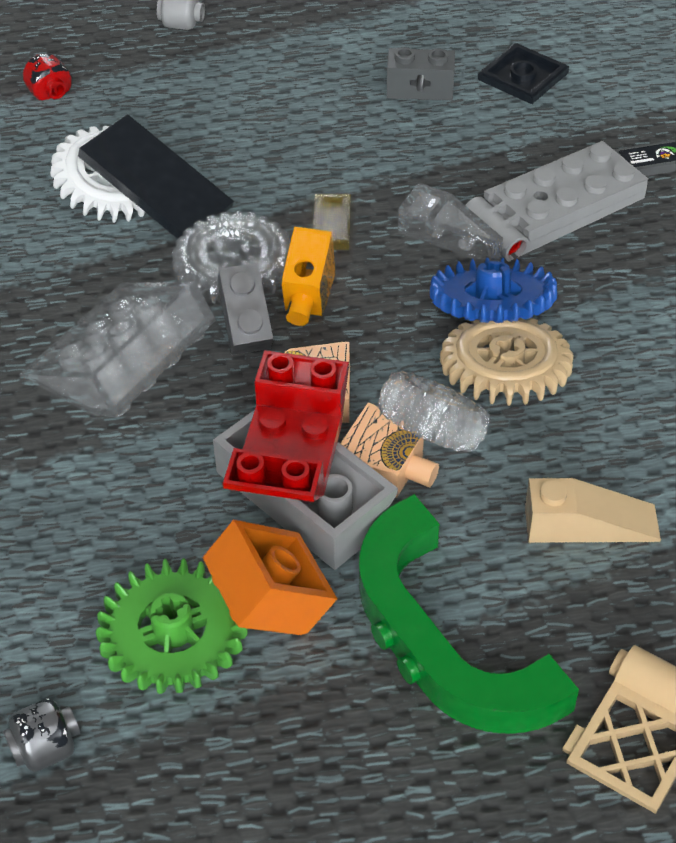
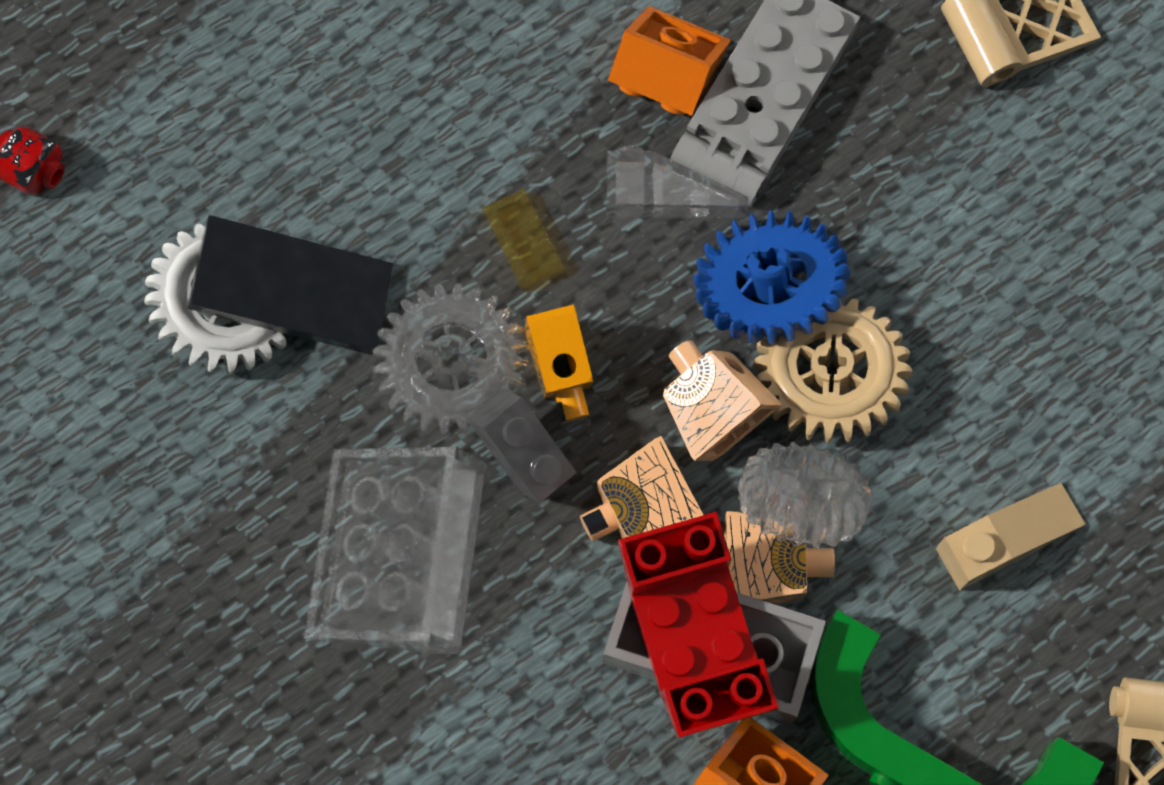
camera: 30 degrees left, 25 degrees up
(404, 340) = (715, 400): none -> light nougat torso
(487, 157) = (668, 60): none -> orange slope

